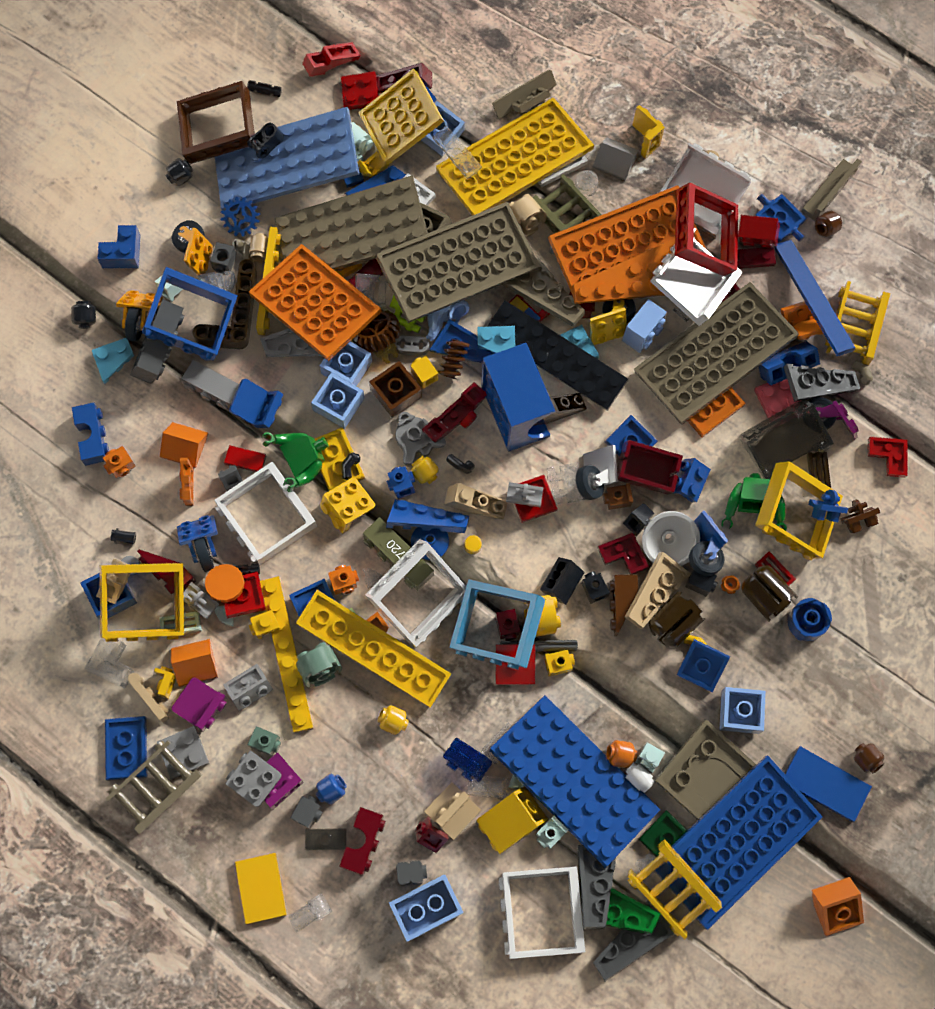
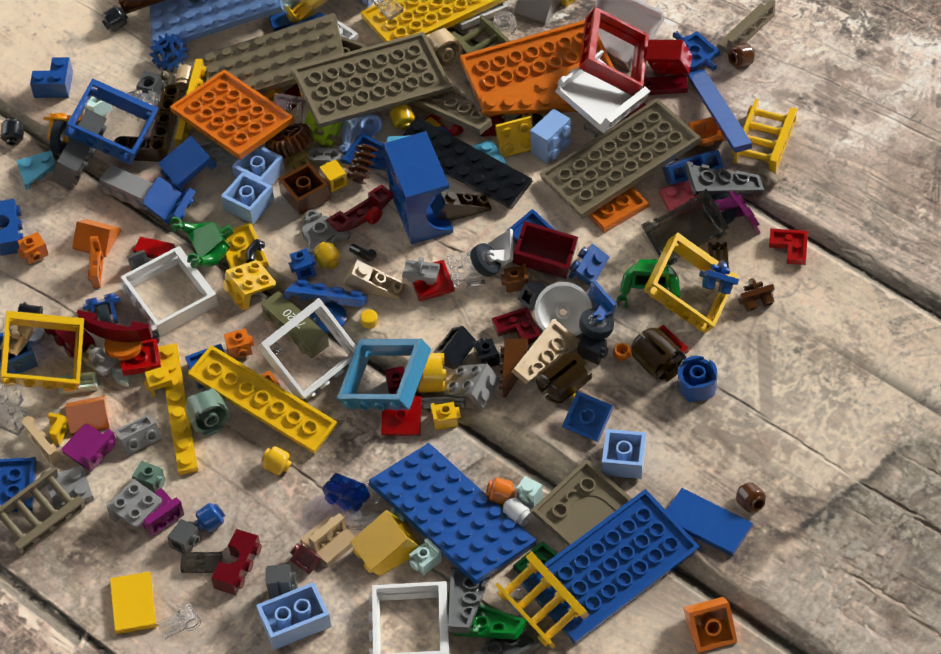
camera: 10 degrees right, 20 degrees down
(190, 239) = (121, 73): light orange plate -> none
(237, 574) = (135, 333): none -> dark red slope
(270, 358) = (185, 163): none -> blue panel
(489, 299) = (402, 116): none -> yellow head
(583, 624) = (473, 381): none -> light grey bracket

